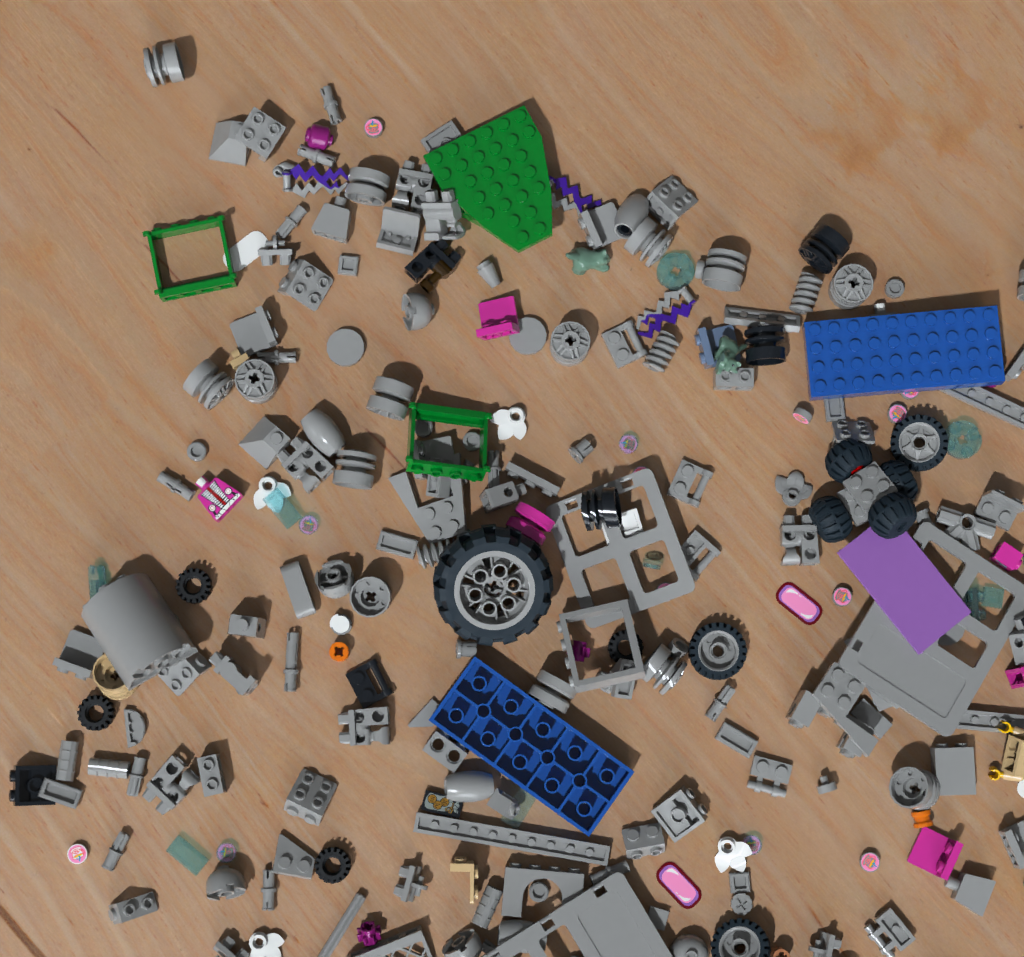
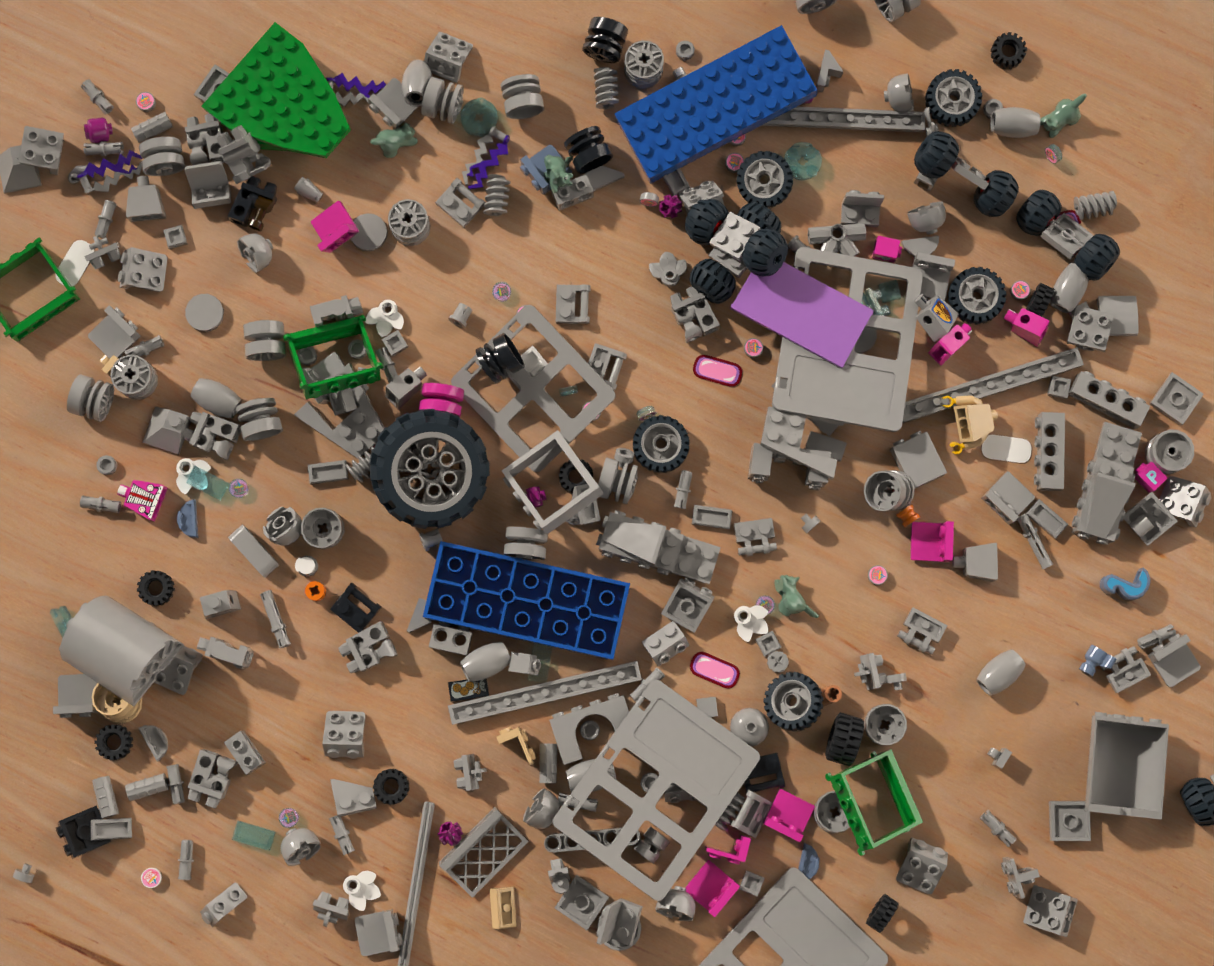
camera: 20 degrees left, 0 degrees up
(250, 533) = (188, 519): none -> sand blue tile
(369, 154) = (152, 127): none -> light grey axle
(468, 398) = (336, 309): none -> light grey hips
(509, 450) = (395, 343): none -> light grey plate
(532, 480) = (427, 360): light grey plate -> none
(673, 747) = (657, 547): none -> light grey wedge
(701, 265) = (499, 101): light grey tile -> none
(715, 616) = (646, 413): none -> clear light blue tile
(755, 318) = (563, 131): light grey plate -> none
(768, 376) = (603, 176): none -> light grey tile
(779, 851) = (792, 600): none -> sand green animal
(819, 430) = (670, 206): none -> magenta gear

